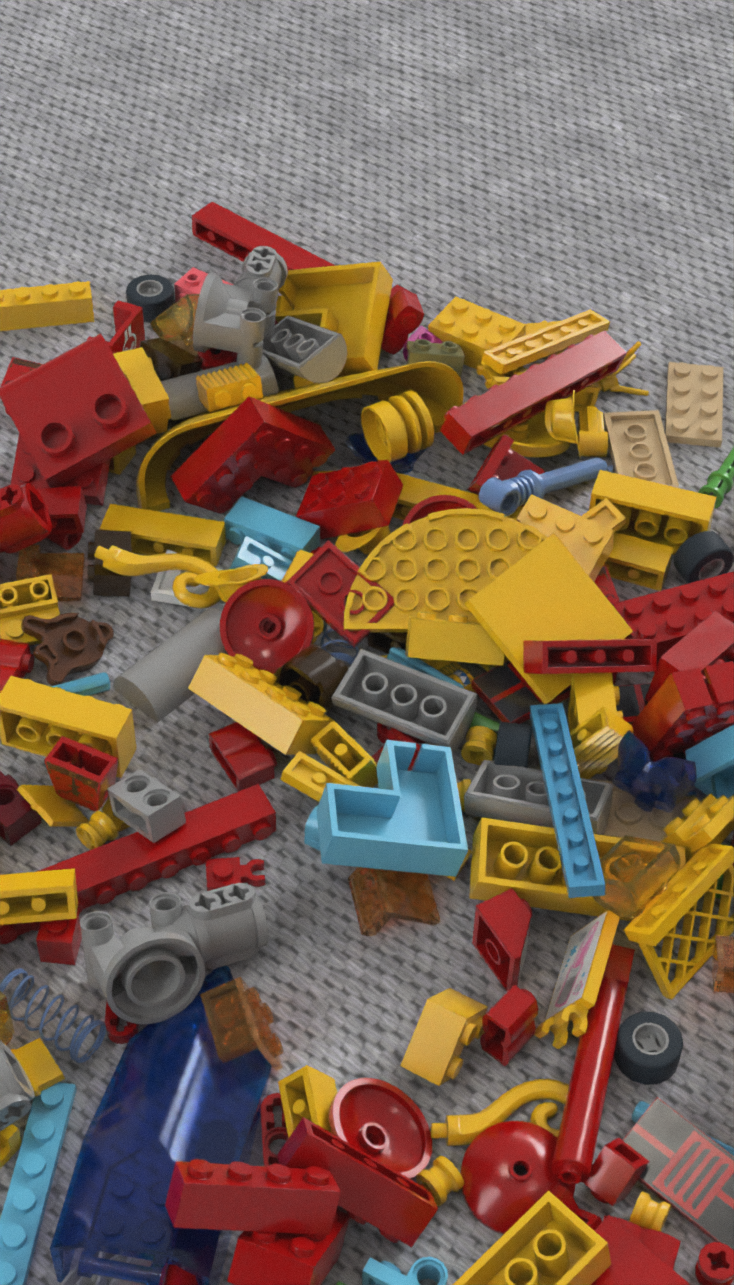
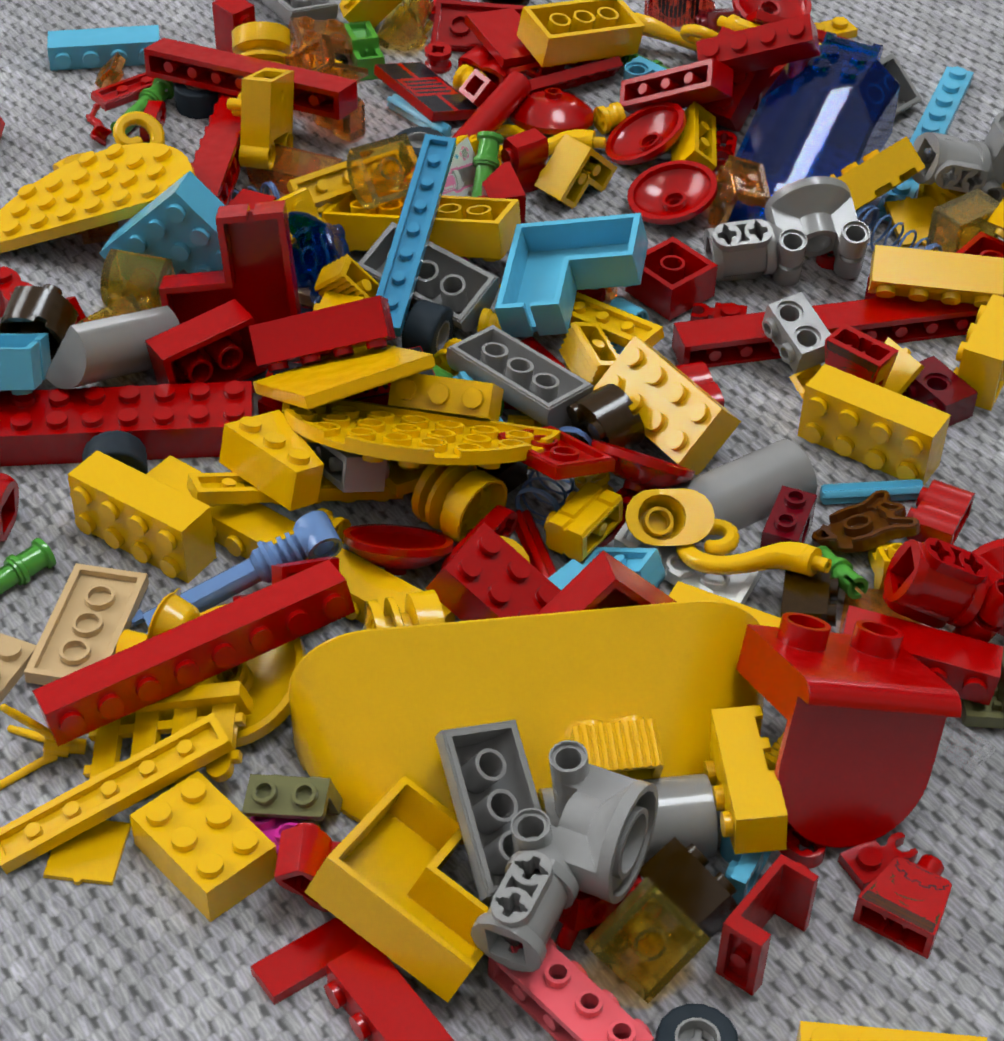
camera: 165 degrees left, 5 degrees down
(85, 1065) = (881, 172): none -> yellow wedge
(87, 596) = (847, 576): none -> bright green pin
(134, 625) = (789, 517): none -> dark red brick
(295, 885) = (674, 279): none -> red brick
(324, 1008) = (672, 192): none -> red dish
(546, 982) = (487, 158): none -> bright green pin

